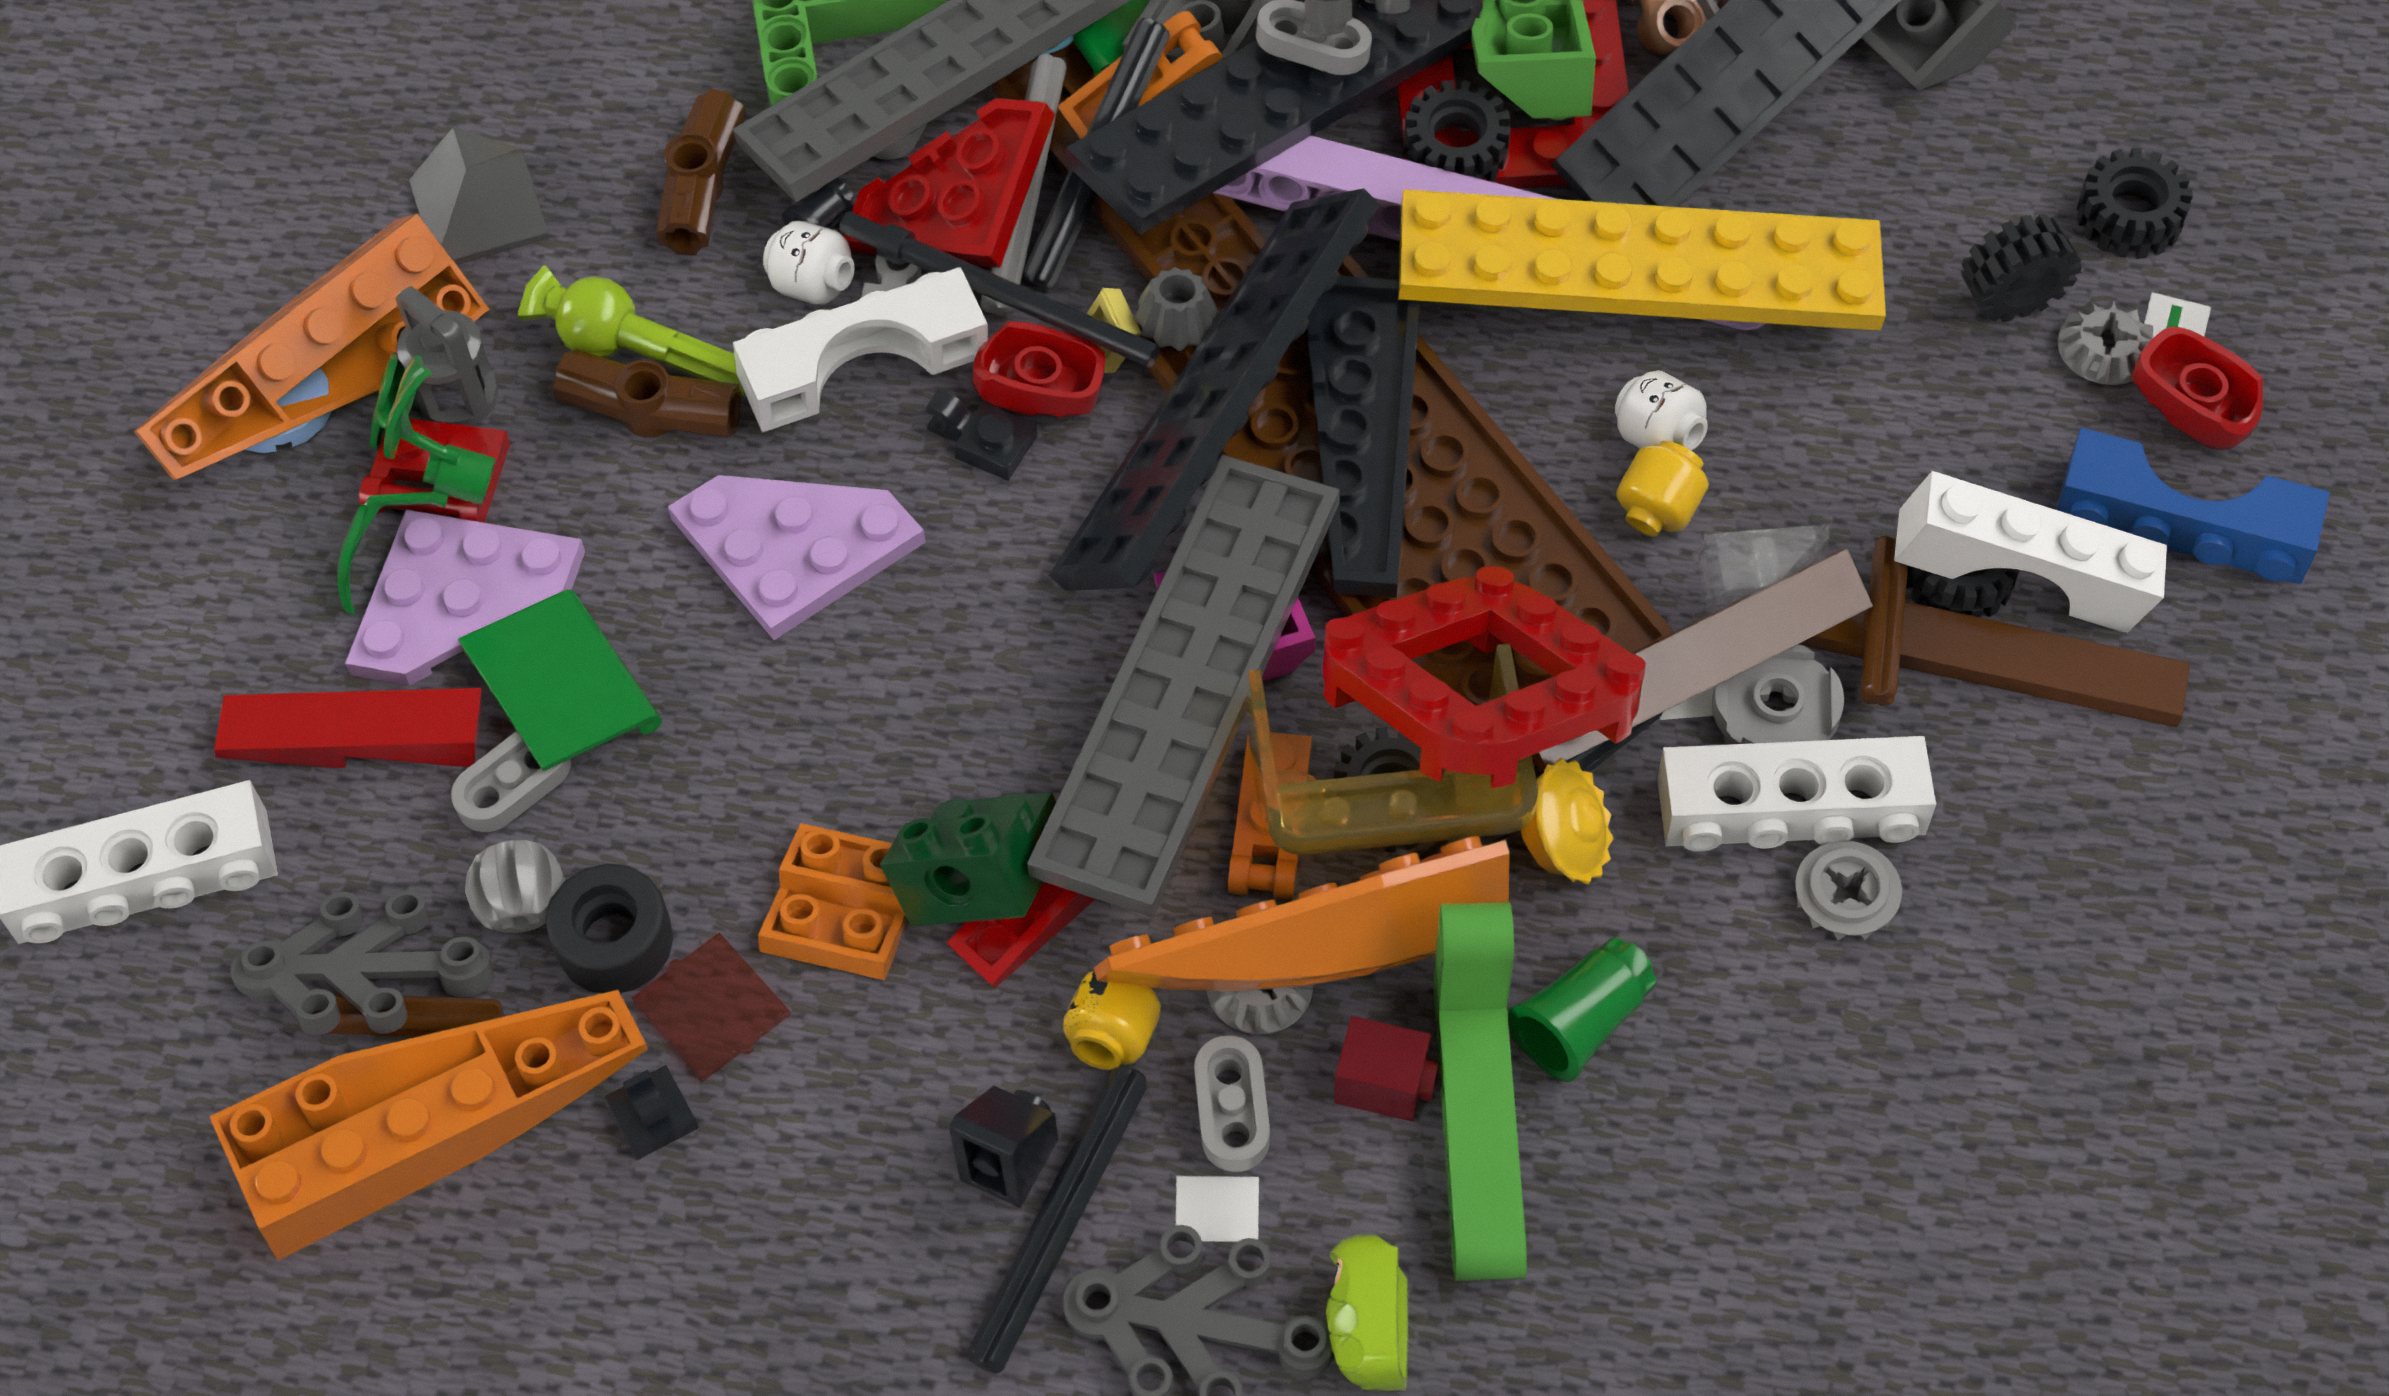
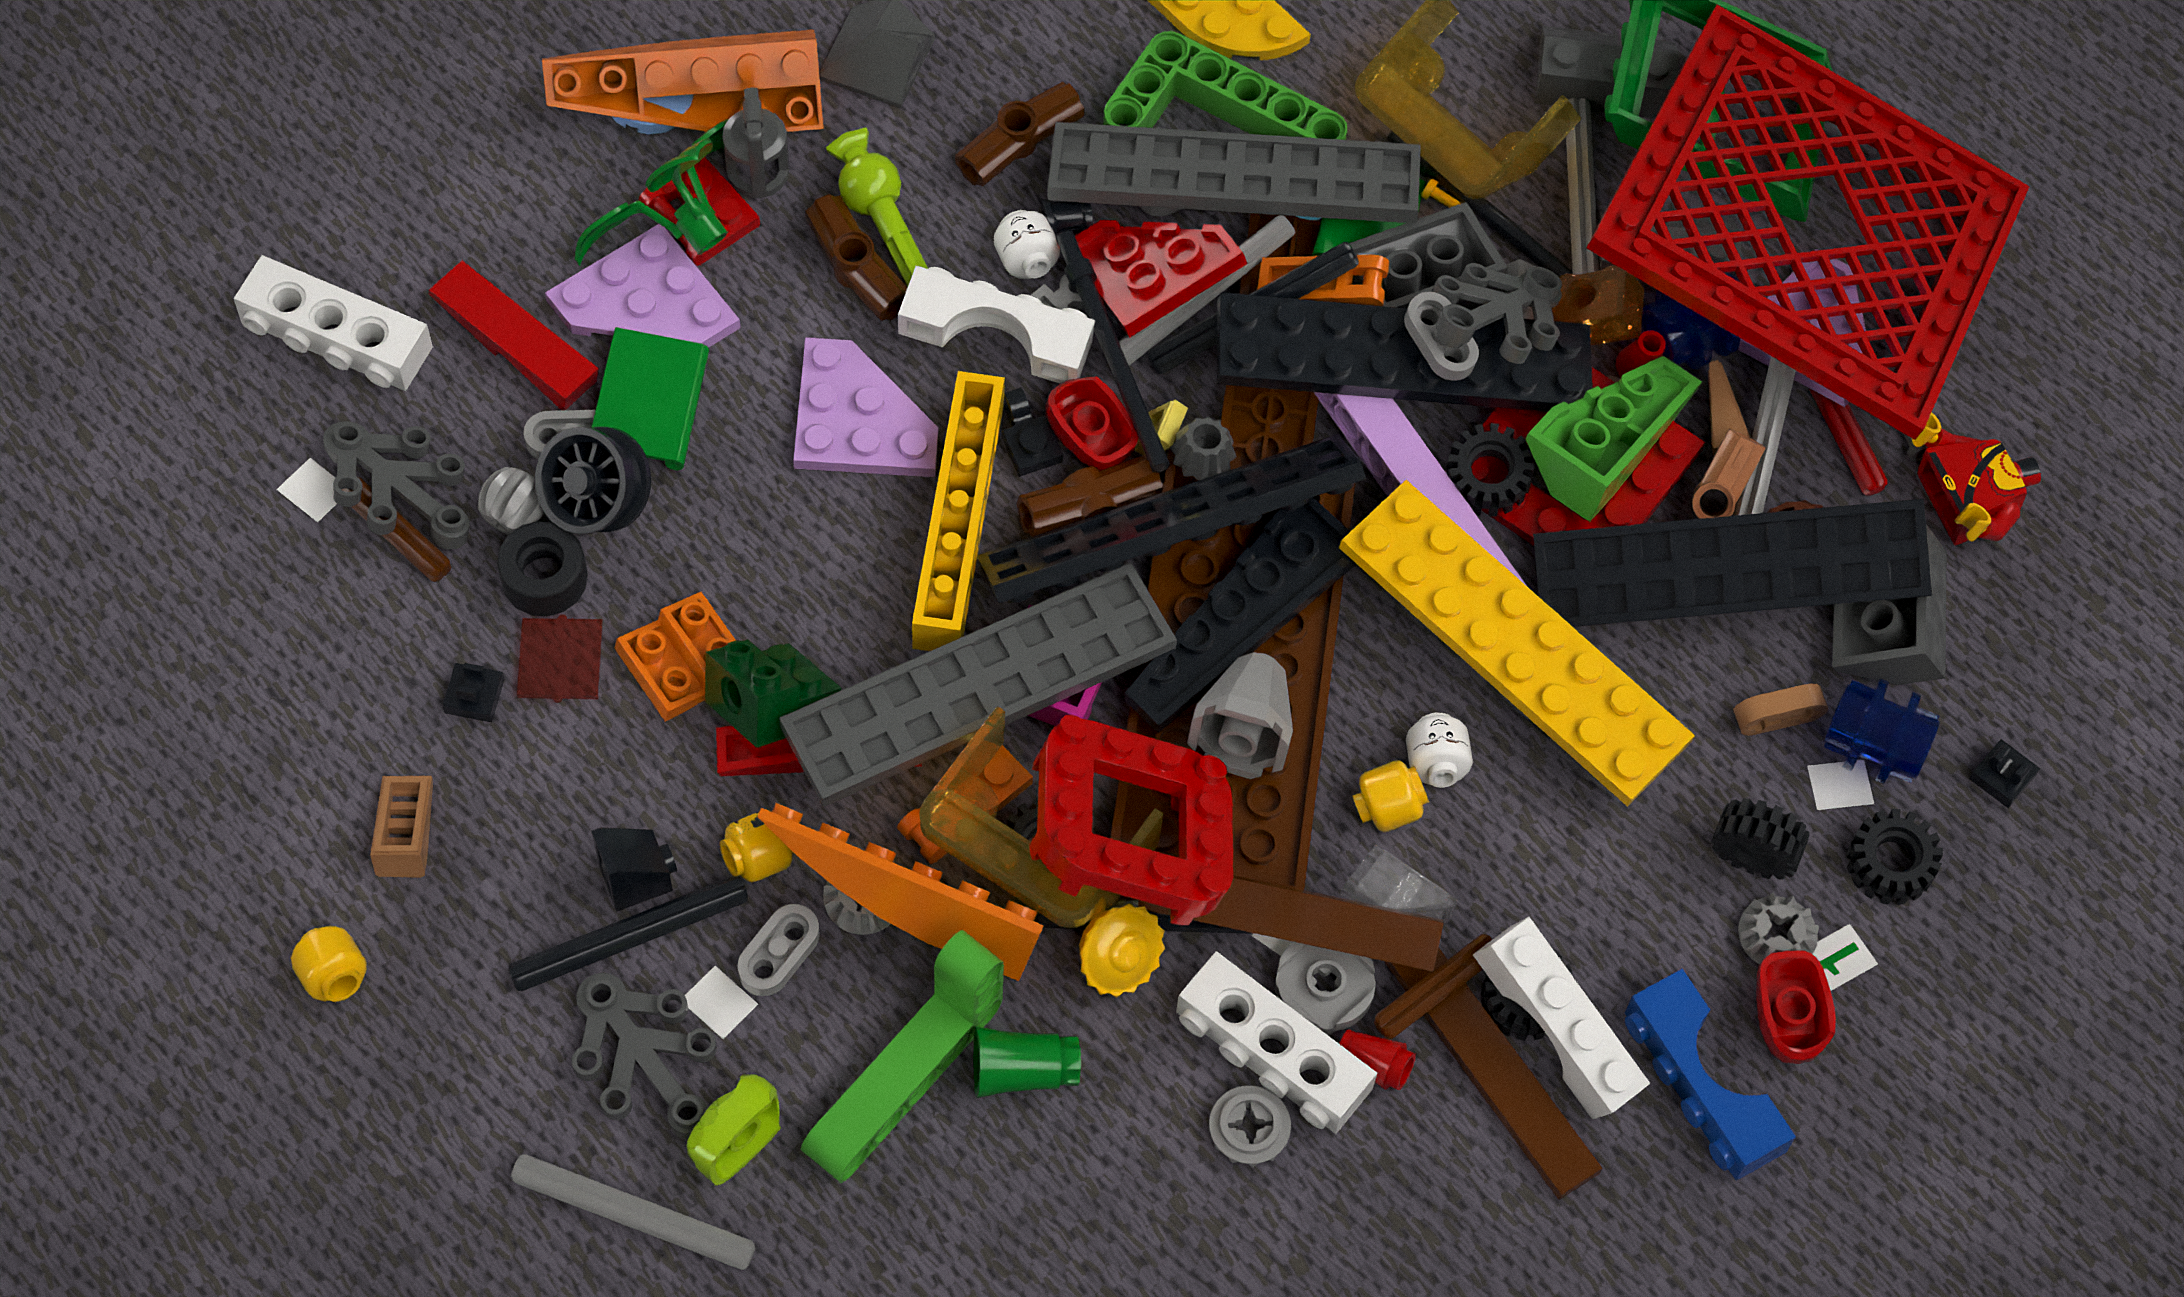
camera: 35 degrees right, 5 degrees up
(266, 1050) = (310, 489): none -> white sticker
(412, 1113) = (346, 588): orange wedge -> none
(590, 791) = (592, 479): none -> black wheel
(731, 1342) = (402, 854): none -> medium nougat slope
(996, 548) = (958, 511): none -> yellow brick
(1101, 440) = (1087, 494): none -> reddish brown piece
(1385, 1069) = (877, 1001): dark red brick -> none
(1476, 510) = (1246, 717): none -> light grey cone
(1902, 719) = (1384, 1056): none -> red cone
(1910, 155) = (1780, 709): none -> medium nougat beam
(2018, 184) = (1840, 787): none -> white sticker
(2022, 101) = (1881, 731): none -> clear blue piece
(2140, 69) = (2004, 773): none -> black tile

